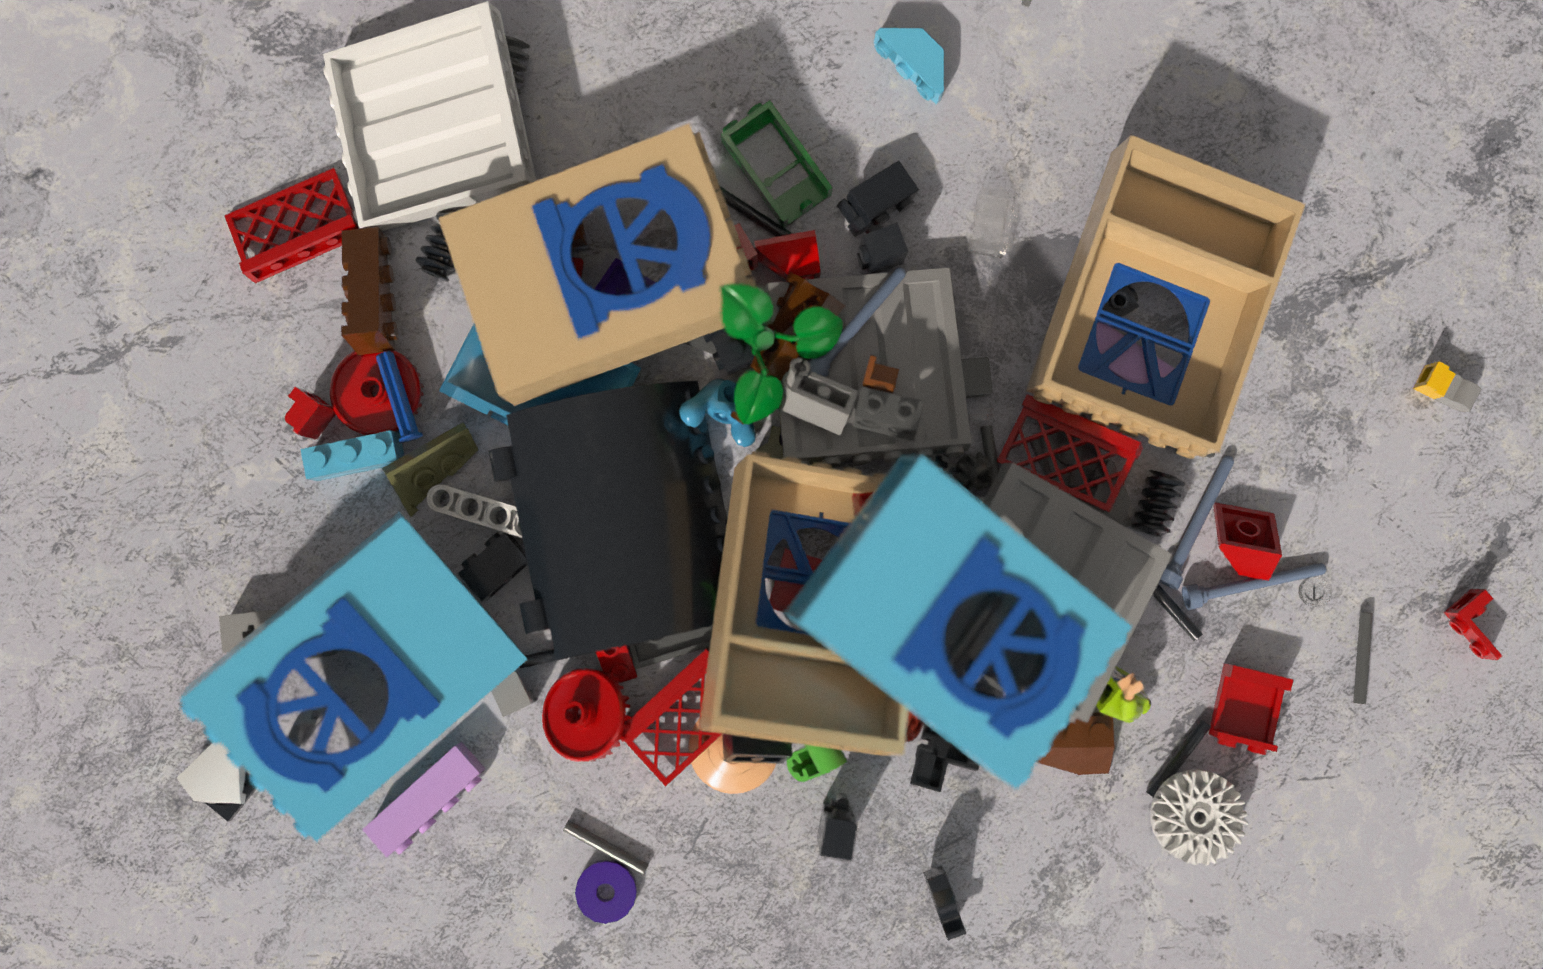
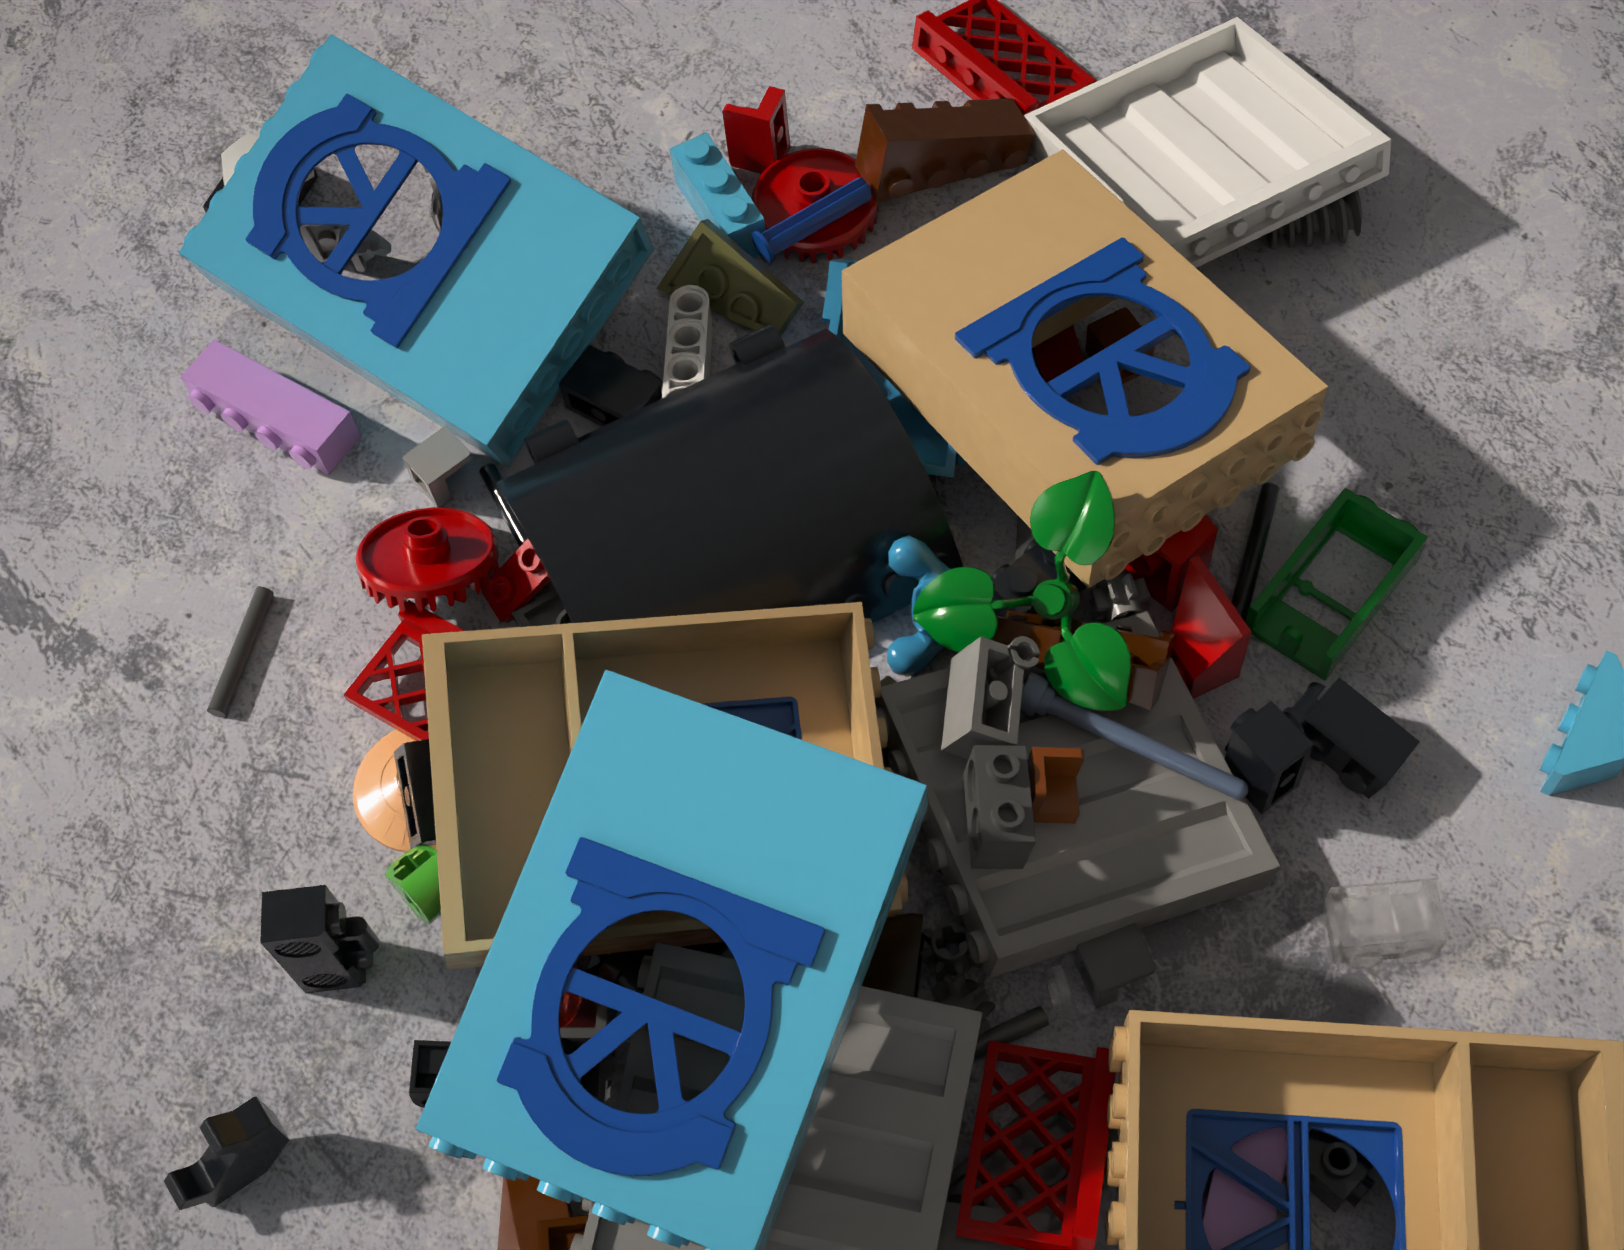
camera: 80 degrees right, 25 degrees down
(602, 909) = (161, 650): dark purple tile -> none

